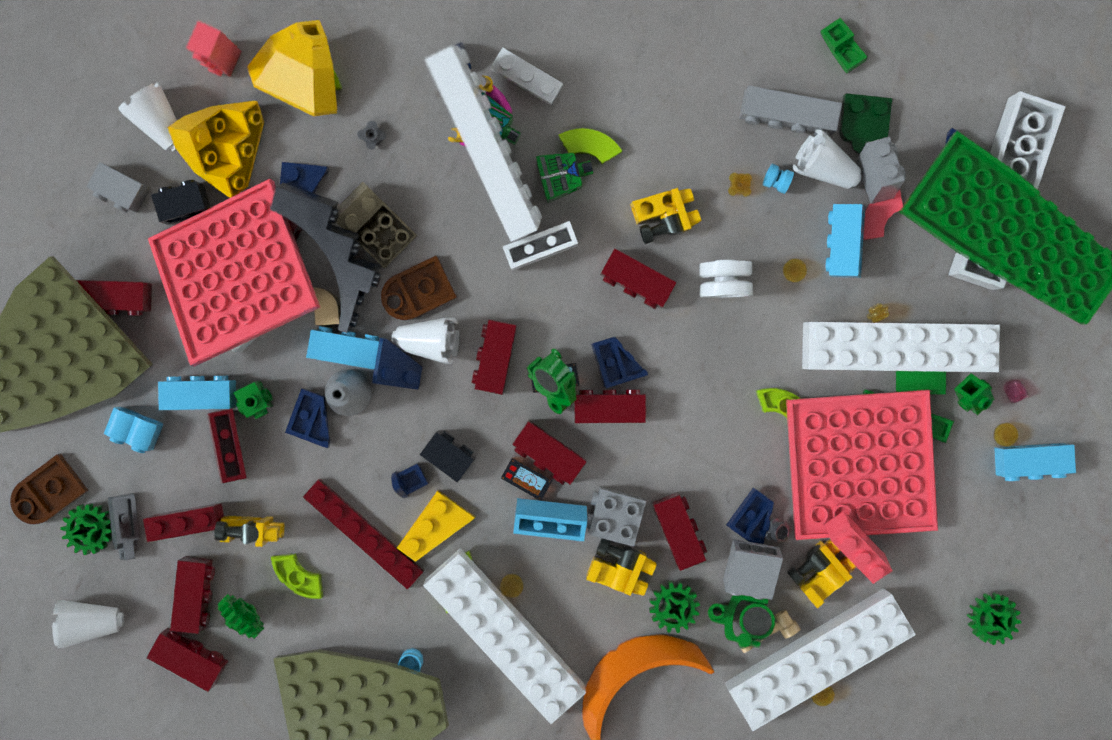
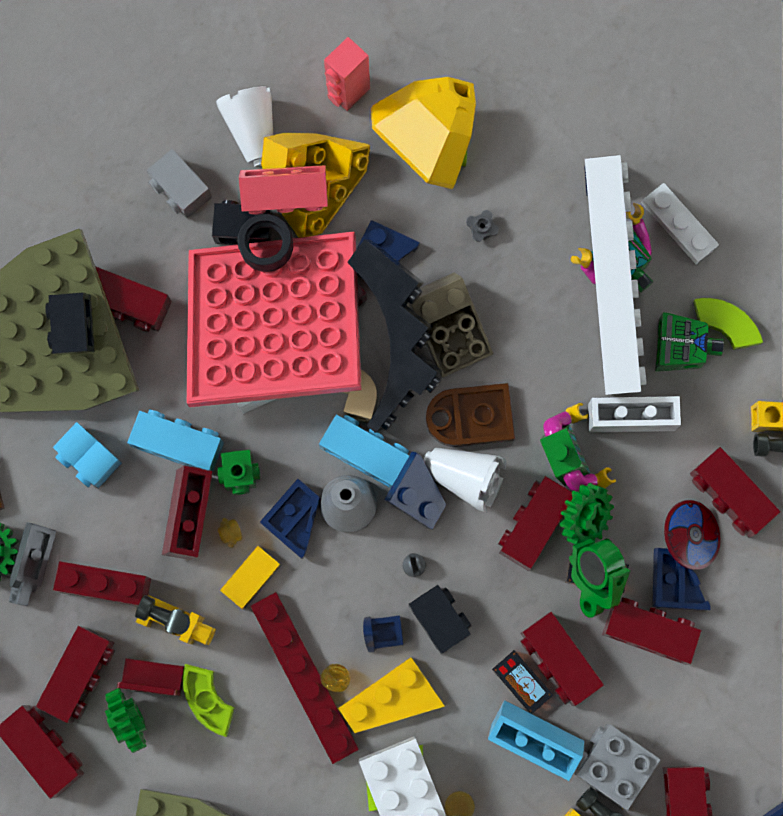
camera: 20 degrees right, 10 degrees down
(73, 336) = (70, 323): none -> black brick
(184, 209) = (255, 224): none -> black tyre
(198, 165) = (283, 189): none -> coral brick
(249, 576) = (152, 677): none -> dark red panel
(265, 447) = (229, 532): none -> clear yellow plate
(294, 475) = (250, 577): none -> yellow tile
(386, 527) = (335, 678): none -> clear yellow plate
(419, 418) = (407, 567): none -> dark grey hinge
(498, 296) = (565, 454): none -> torso
(530, 337) = (587, 514): none -> green gear
(616, 323) = (692, 534): none -> shield

